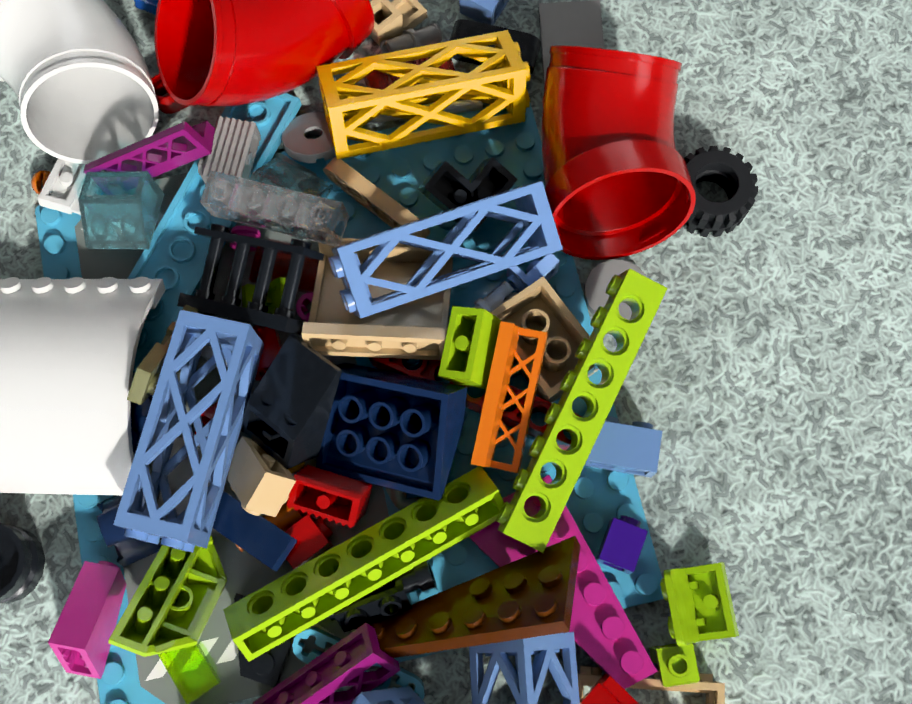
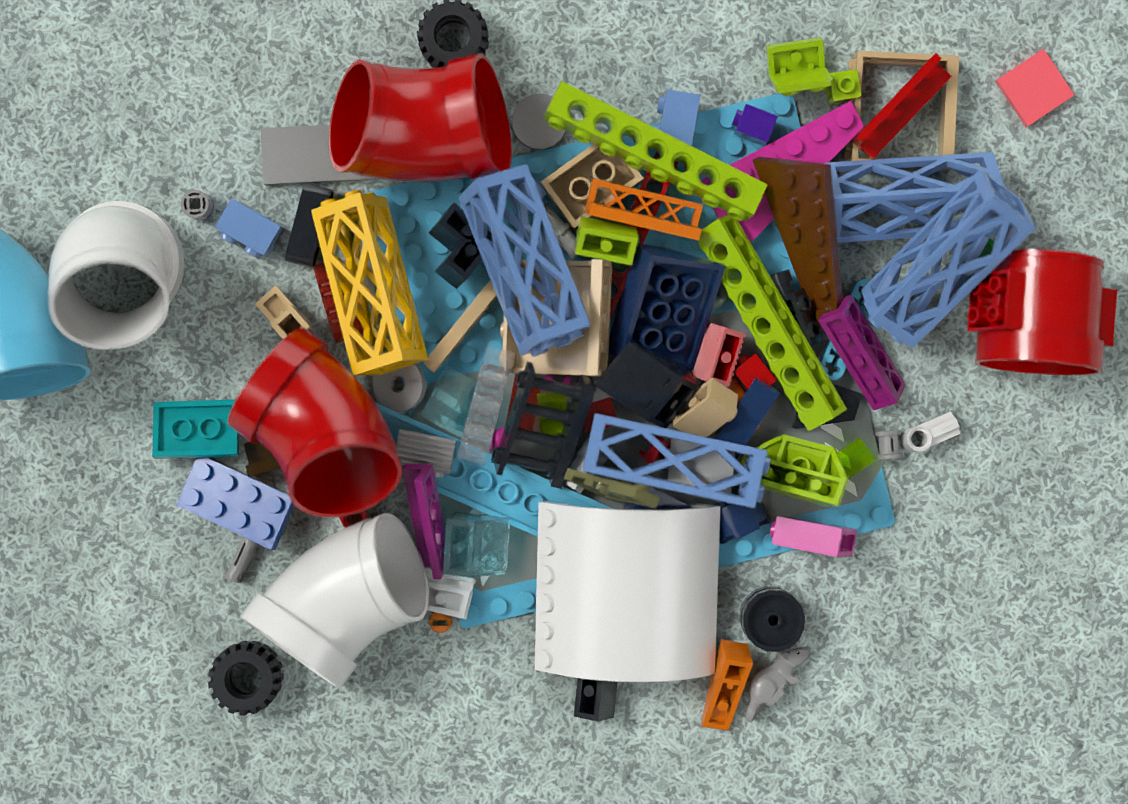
camera: 100 degrees left, 15 degrees up
(412, 38) = (305, 299): light grey pin -> none

